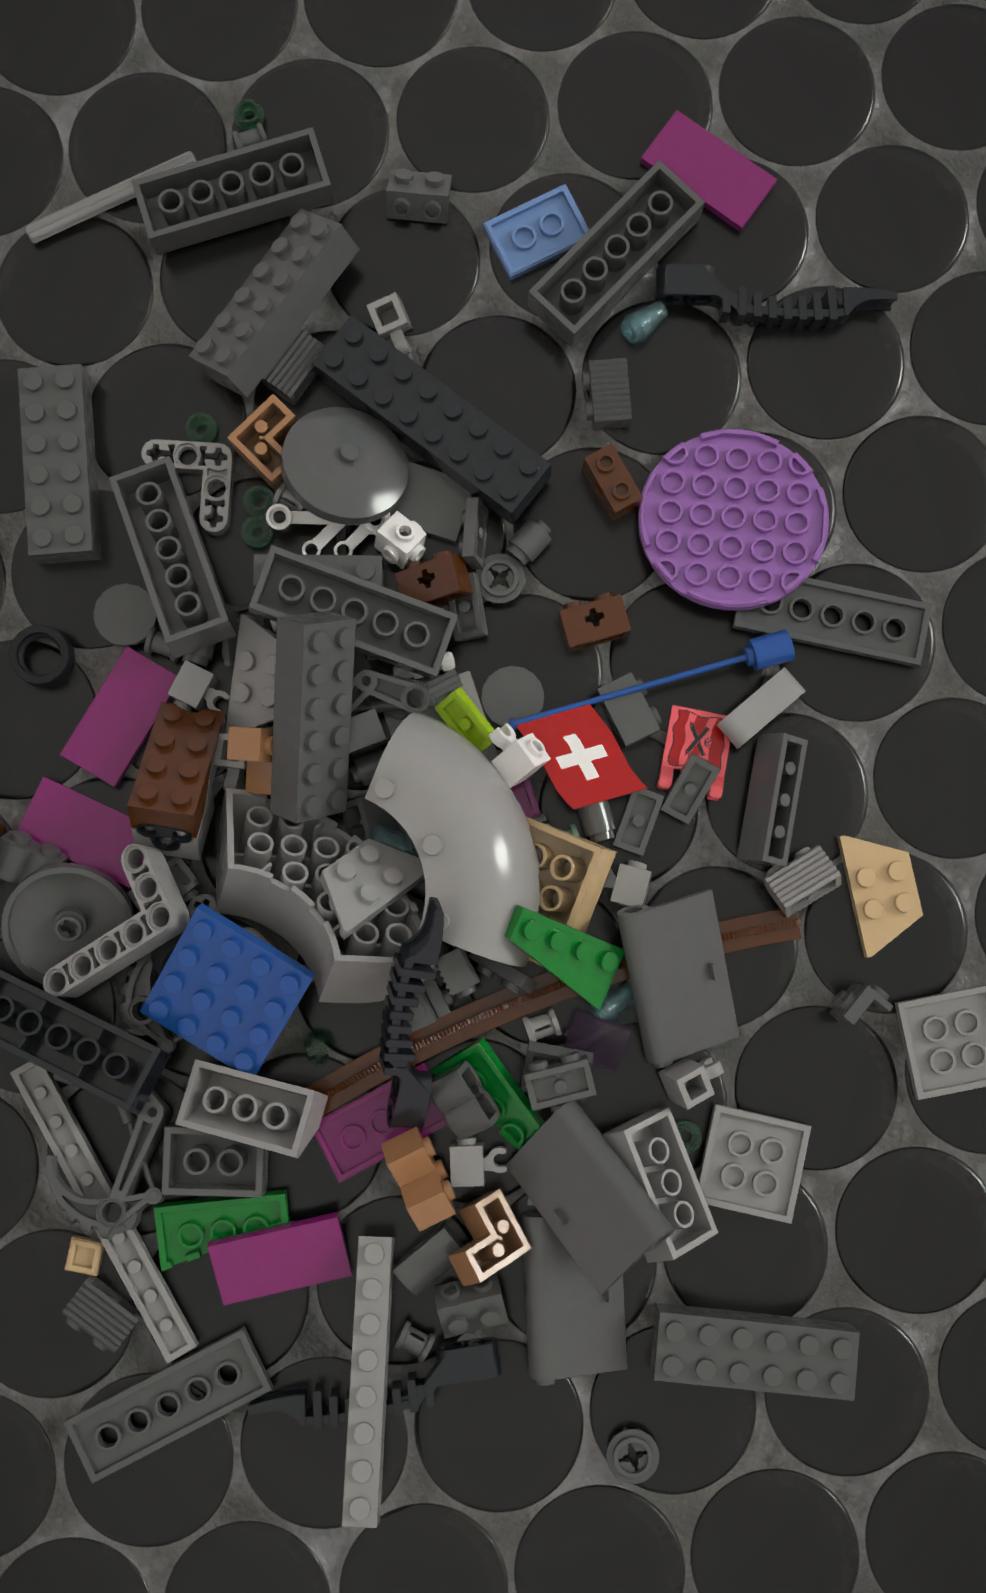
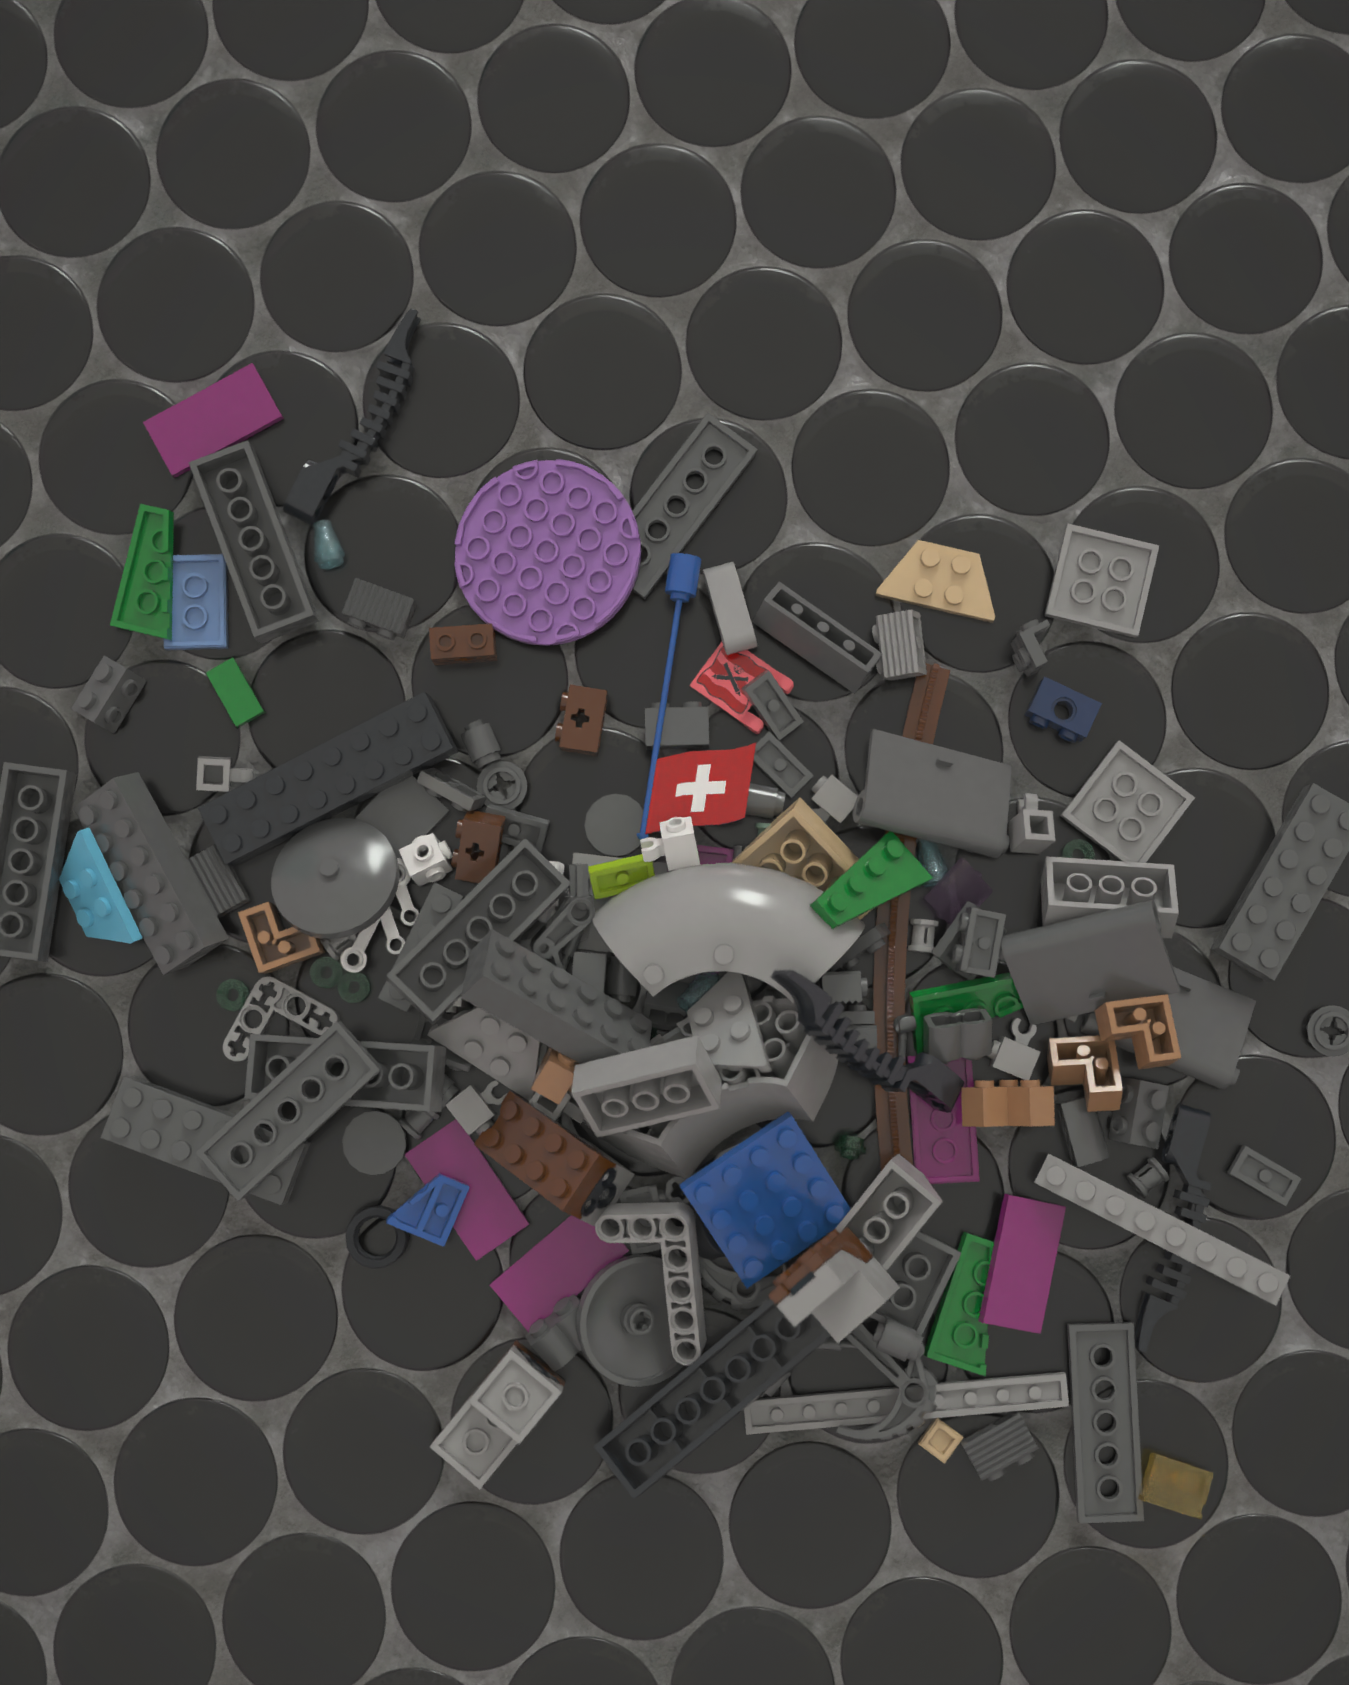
camera: 60 degrees left, 0 degrees up
(85, 692) = (431, 1209): none -> blue wing
(118, 538) = (266, 1108): none -> dark grey plate
(138, 1499) = (1176, 1485): none -> clear yellow plate
(151, 1174) = (897, 1340): none -> dark grey brick
(173, 1090) = (834, 1283): none -> light grey piece
(234, 262) = (95, 893): none -> medium azure wing
(276, 830) = (647, 1086): none -> light grey brick
(449, 1045) = (903, 1025): none -> dark grey hand
(466, 1452) = (1264, 1175): none -> dark grey plate
(472, 304) = (235, 692): none -> green tile
(537, 178) = (147, 577): none -> green wing
(556, 1275) = (1147, 1023): none -> medium nougat brick
(822, 1078) = (1080, 707): none -> dark blue brick

